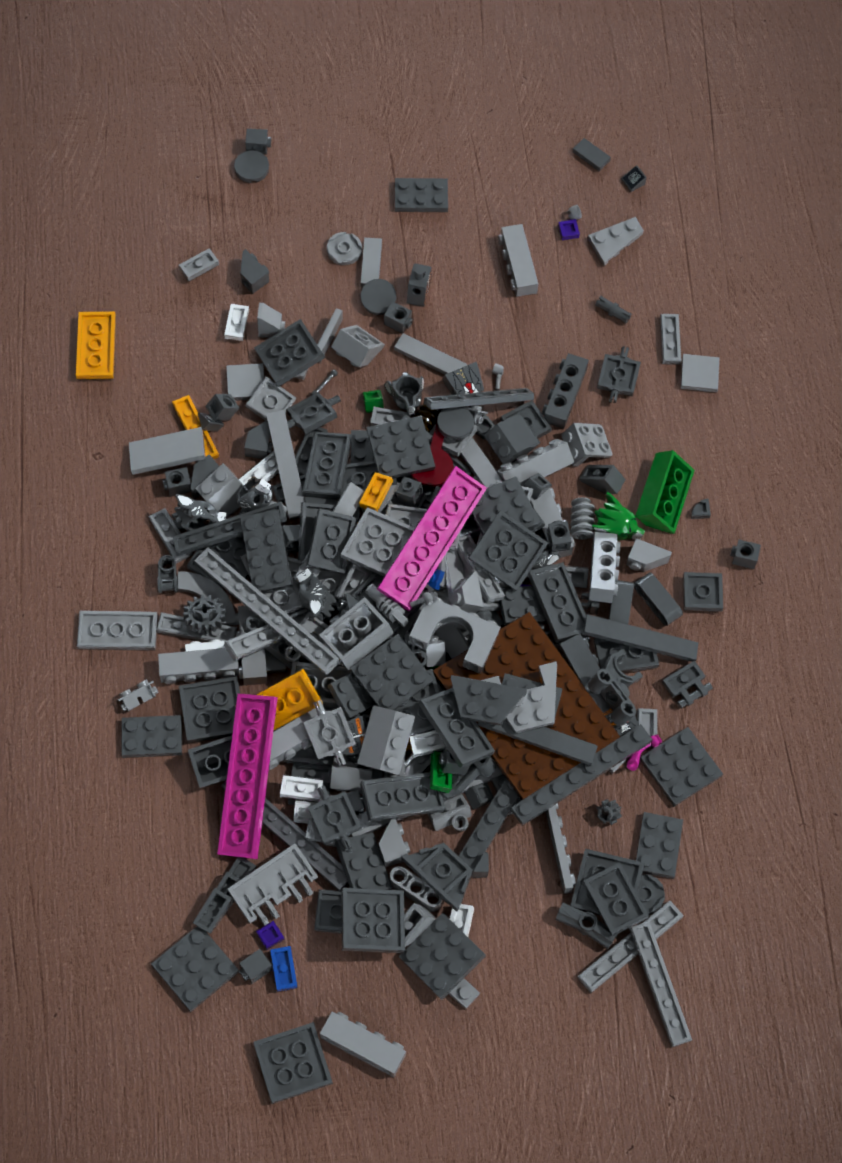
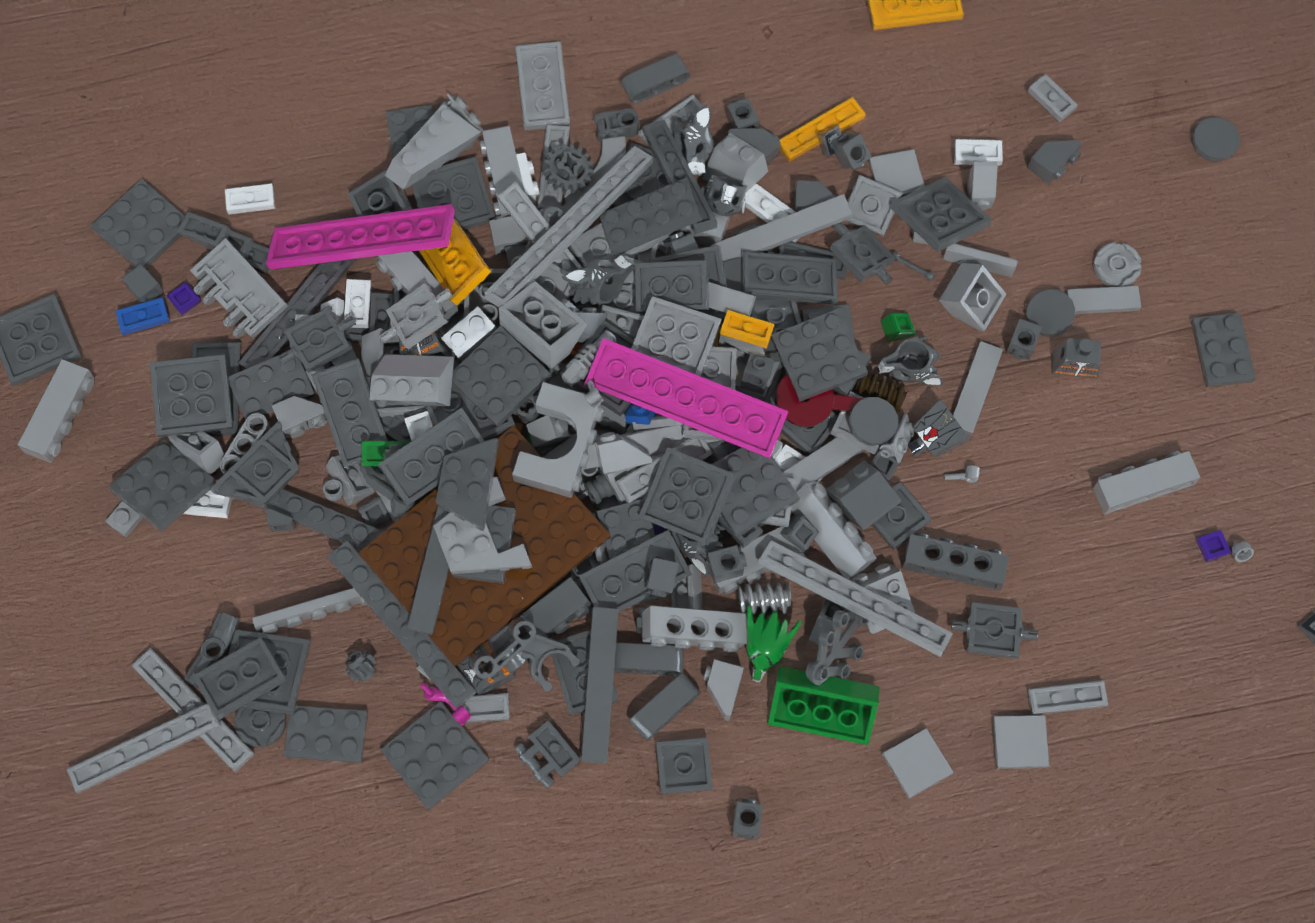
camera: 85 degrees right, 5 degrees up
(130, 541) = (655, 78): none -> dark grey beam
(167, 450) = (780, 98): light grey tile -> none
(171, 714) = (434, 144): none -> light grey wedge
(186, 873) = (250, 199): none -> white plate
(257, 140) = (1254, 138): dark grey brick -> none
(383, 416) = (873, 343): light grey plate -> none
(478, 398) = (915, 448): dark grey tile -> none
(567, 579) = (661, 577): none -> dark grey brick
(593, 454) = (855, 598): none -> light grey plate
(611, 240) = (1213, 609): light grey wing -> none
(613, 309) = (1097, 615): dark grey pin -> none
(625, 469) = (820, 669): none -> dark grey plant
(701, 510) = (808, 758): dark grey tile -> none
(710, 440) = (917, 763): none -> light grey tile

